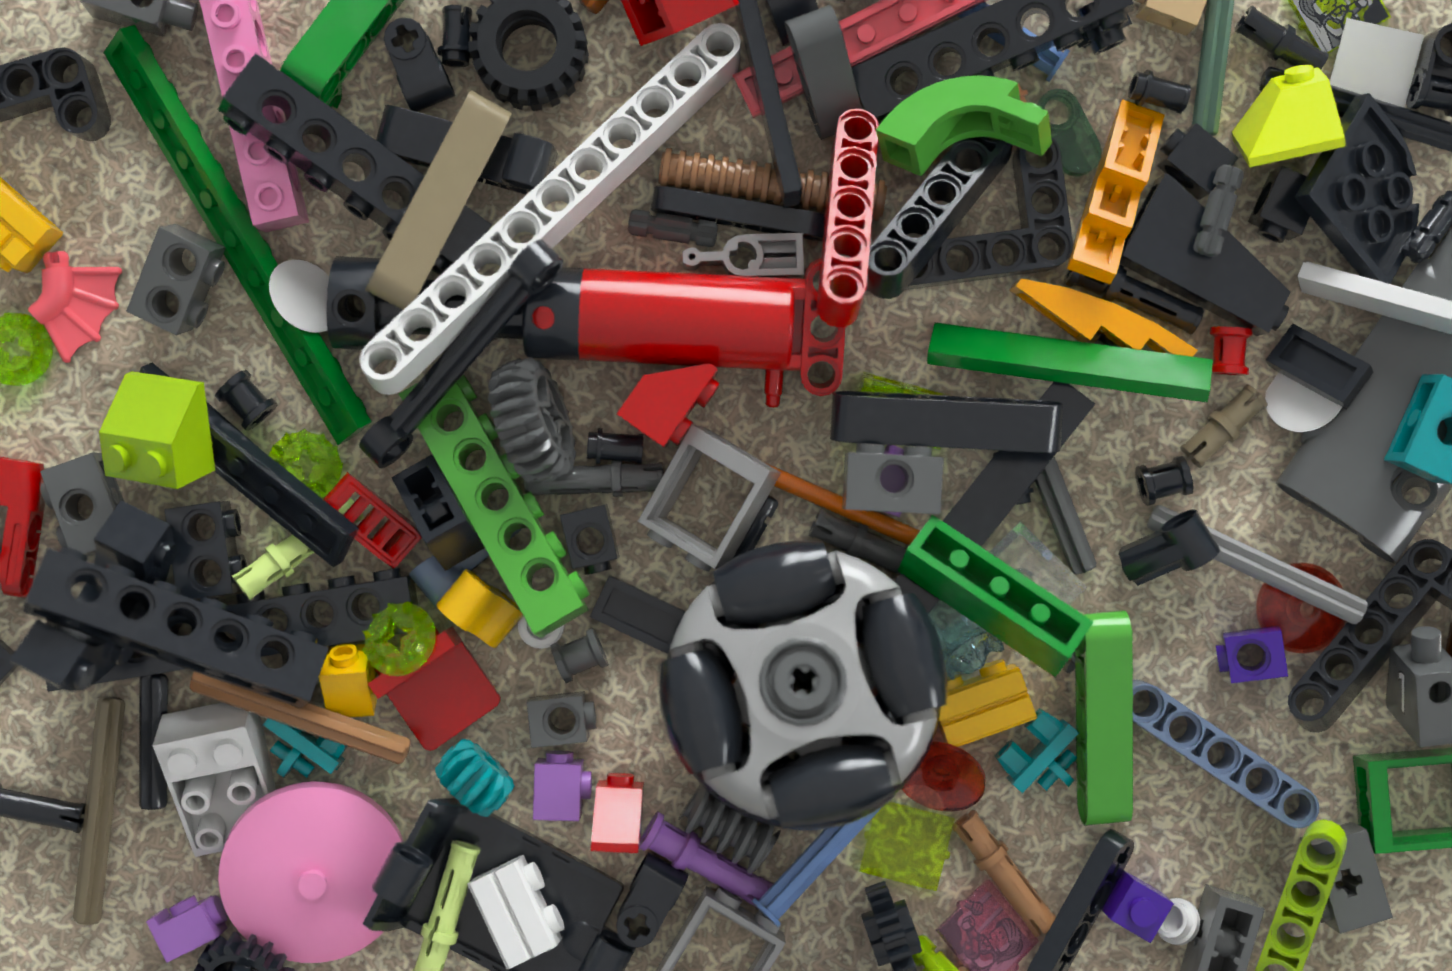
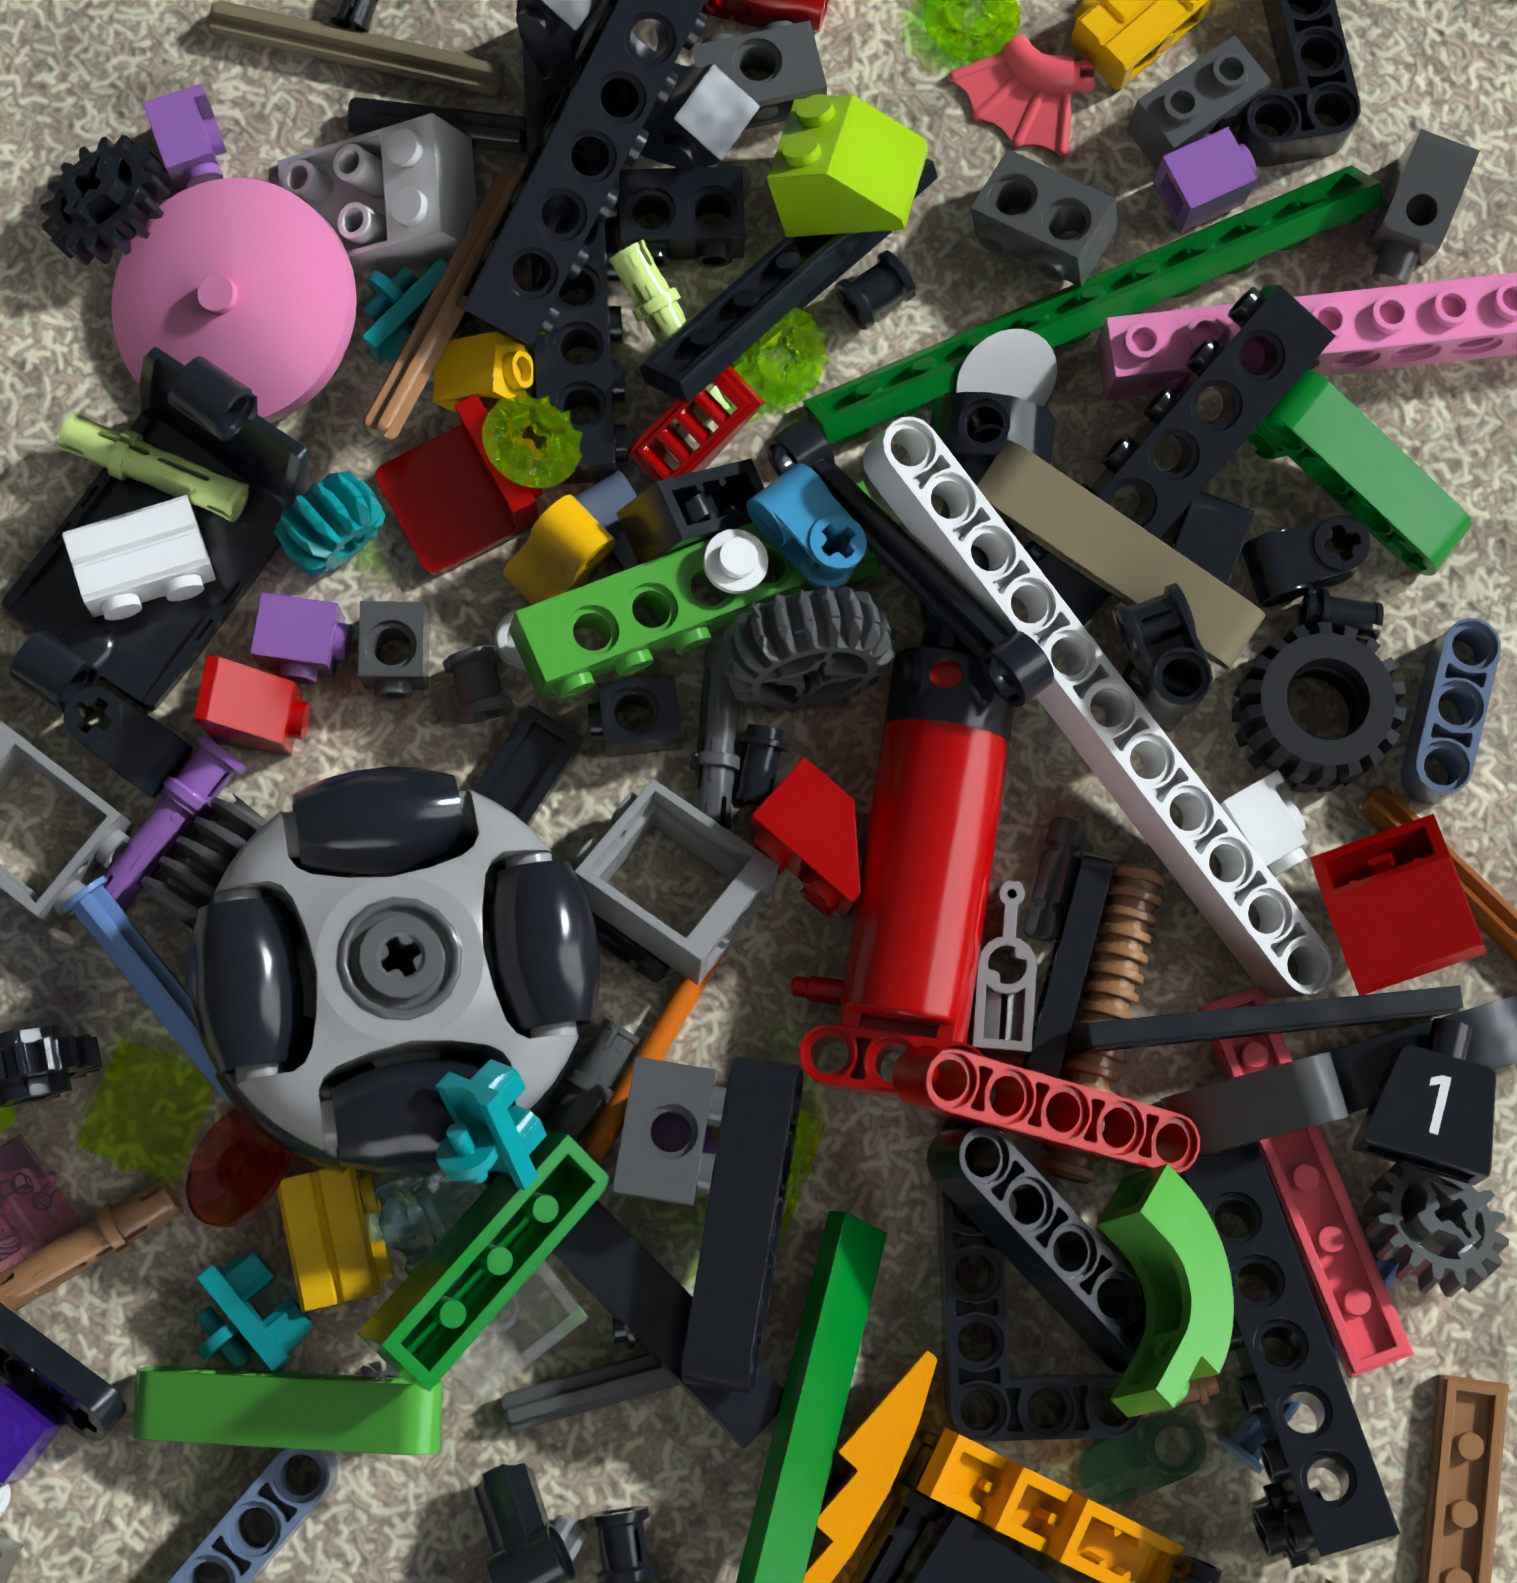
camera: 85 degrees right, 10 degrees down
(71, 171) = (1198, 100): none -> dark grey brick
(130, 160) = (1205, 179): none -> medium lavender brick
(439, 432) = (804, 523): none -> dark azure piece
(475, 479) = (735, 561): none -> white plate
(507, 161) = (1162, 637): none -> black piece
(618, 79) = (1269, 823): none -> white brick
(911, 602) = (485, 1130): none -> teal hips

